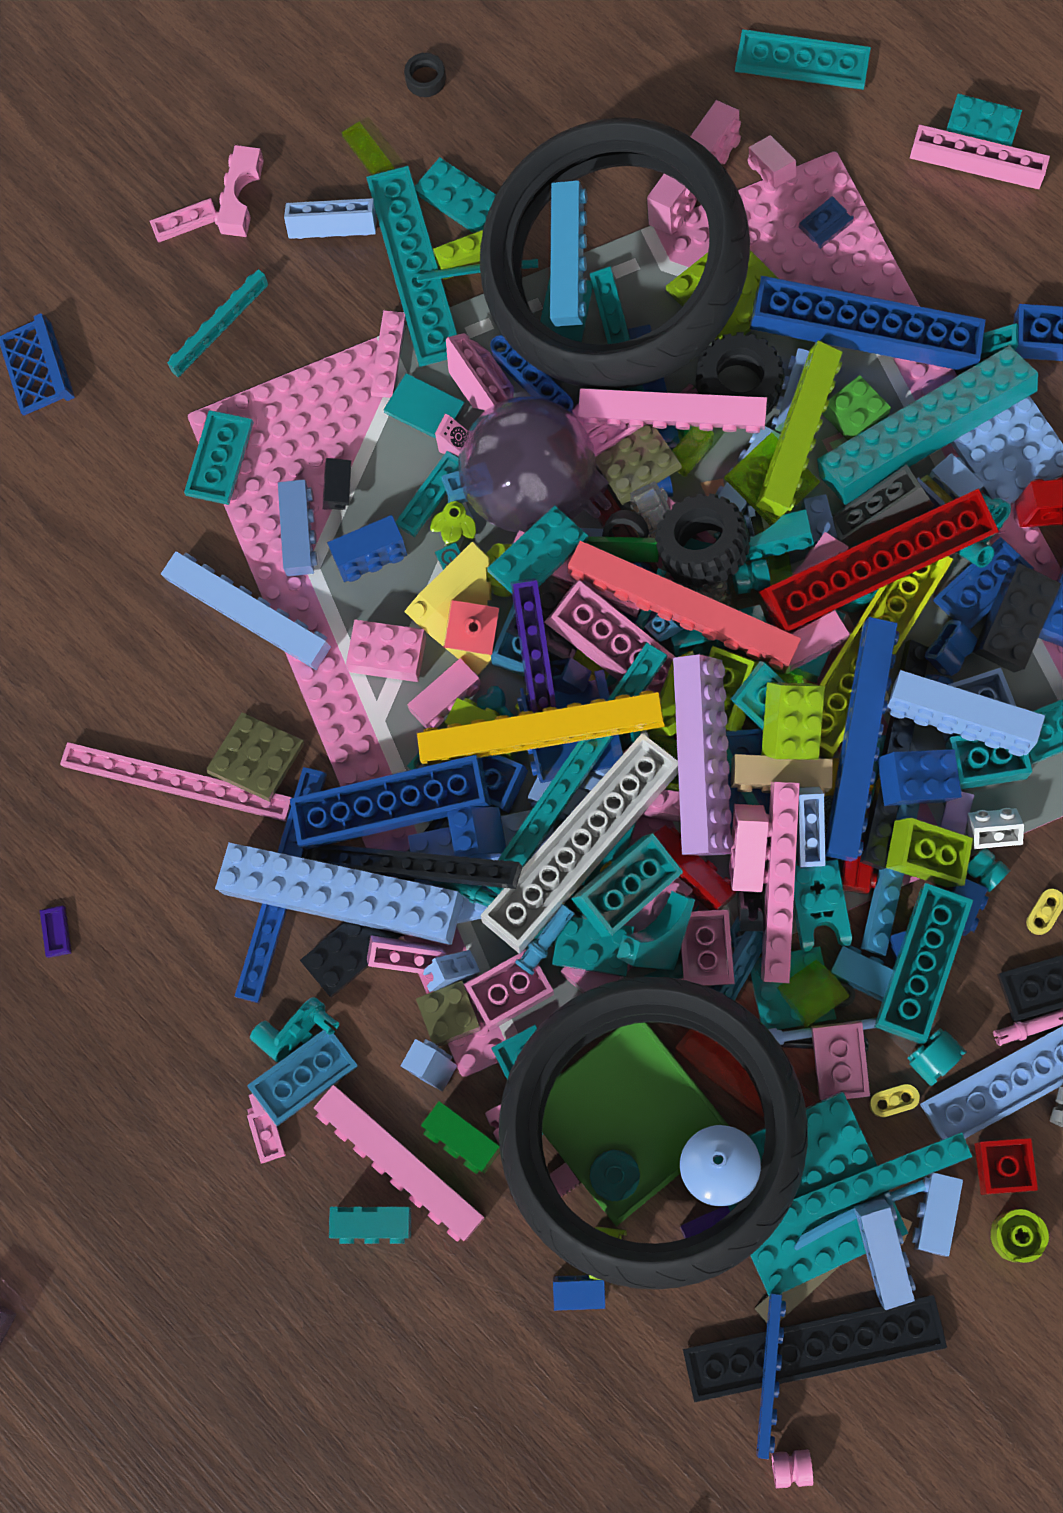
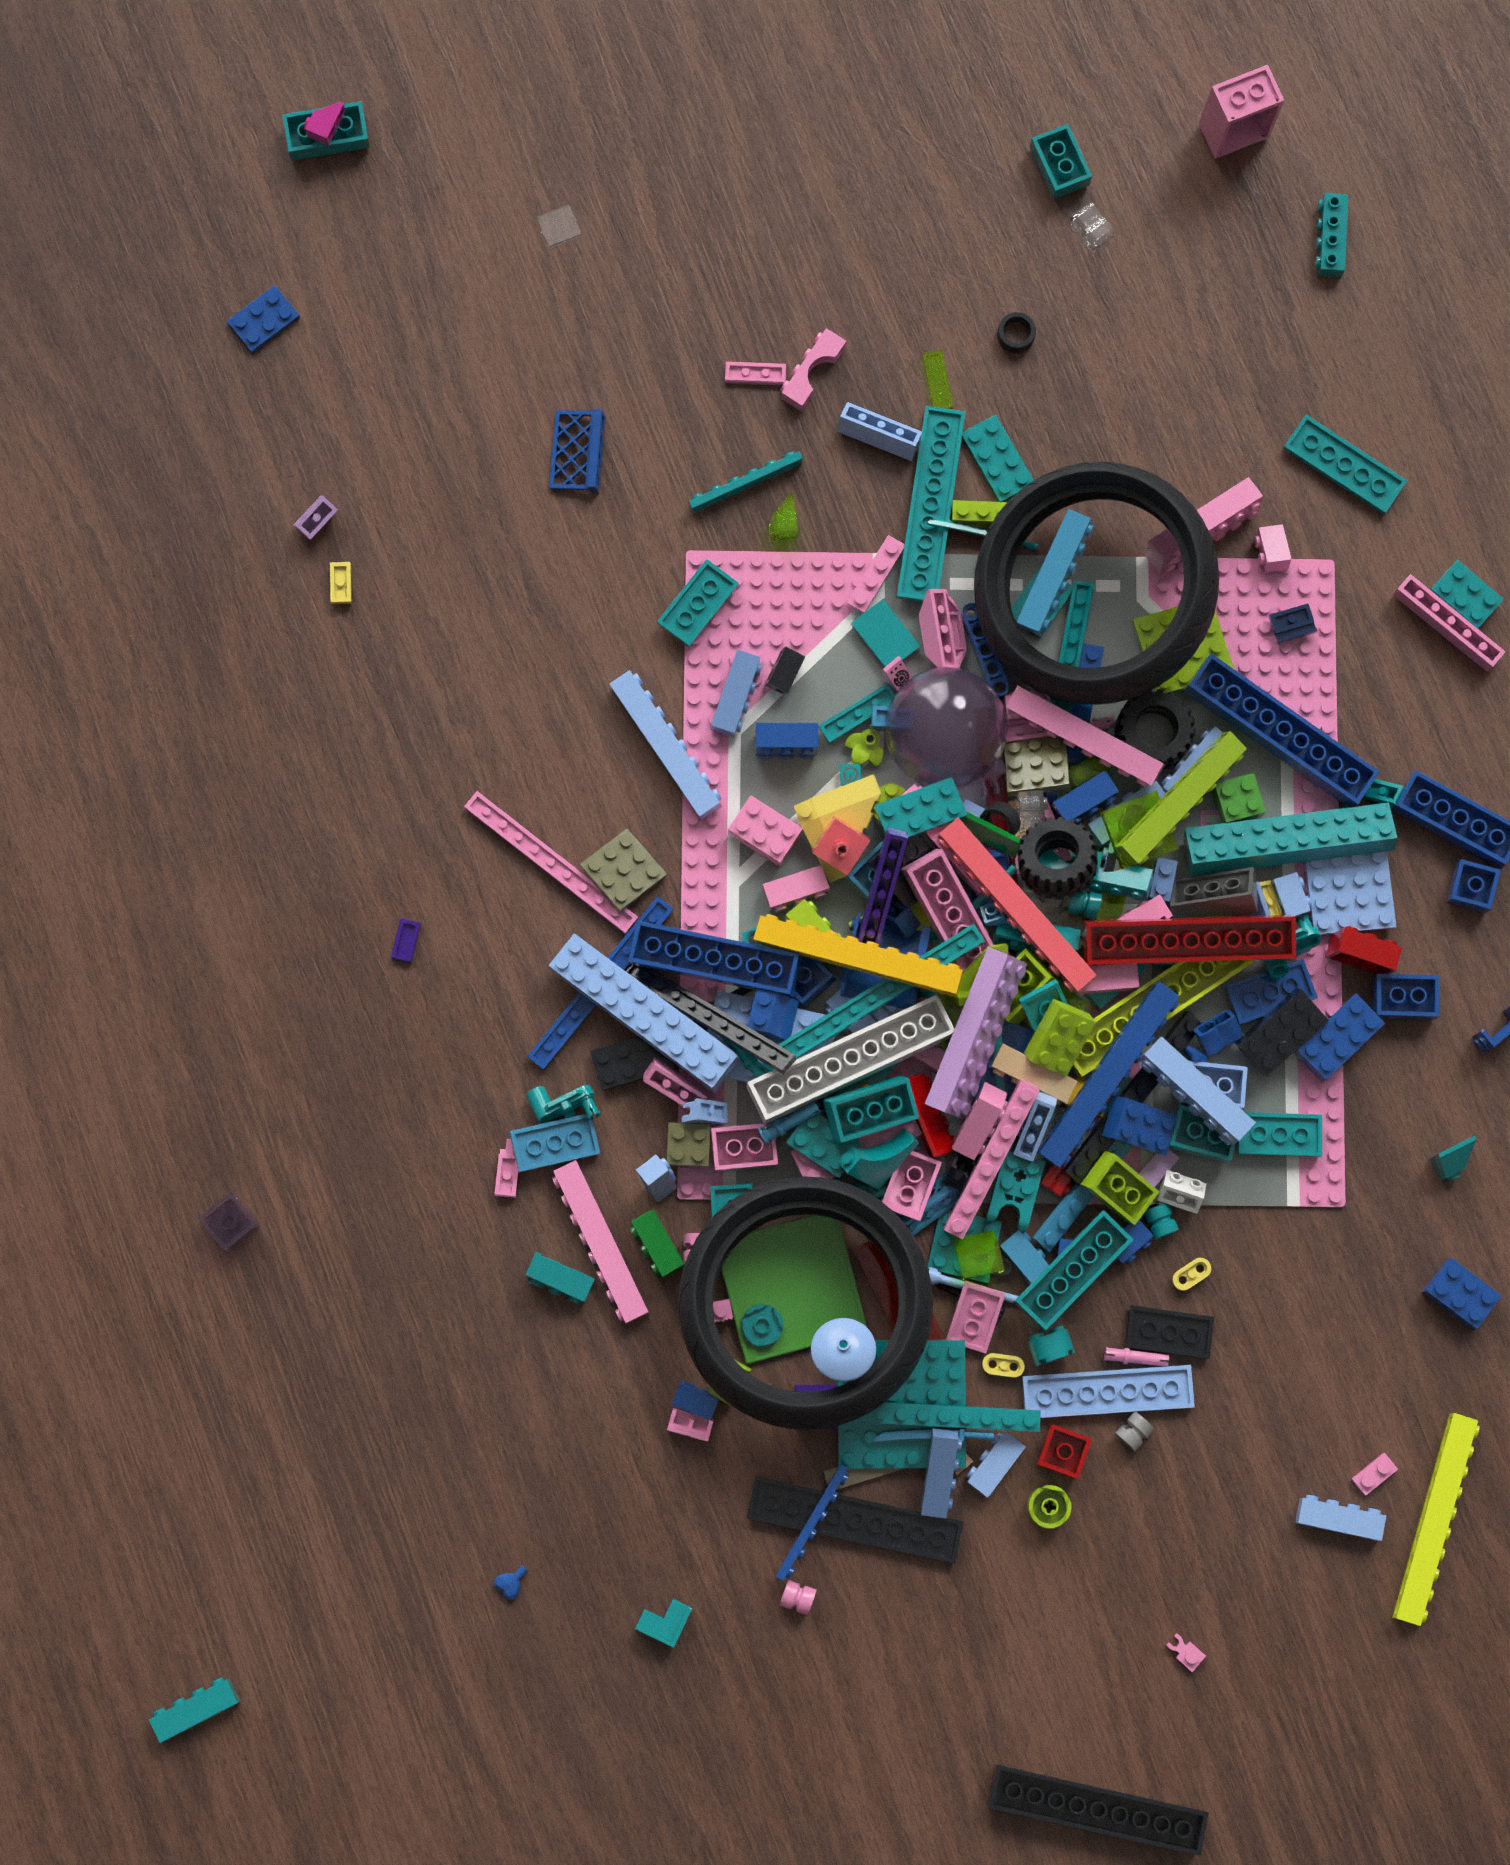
camera: 10 degrees right, 5 degrees up
(273, 343) = (784, 521): none -> clear neon green slope
(494, 700) = (833, 912): teal rock -> none
(584, 1324) = (690, 1425): none -> bright pink hinge
(704, 470) = (1086, 799): none -> blue brick

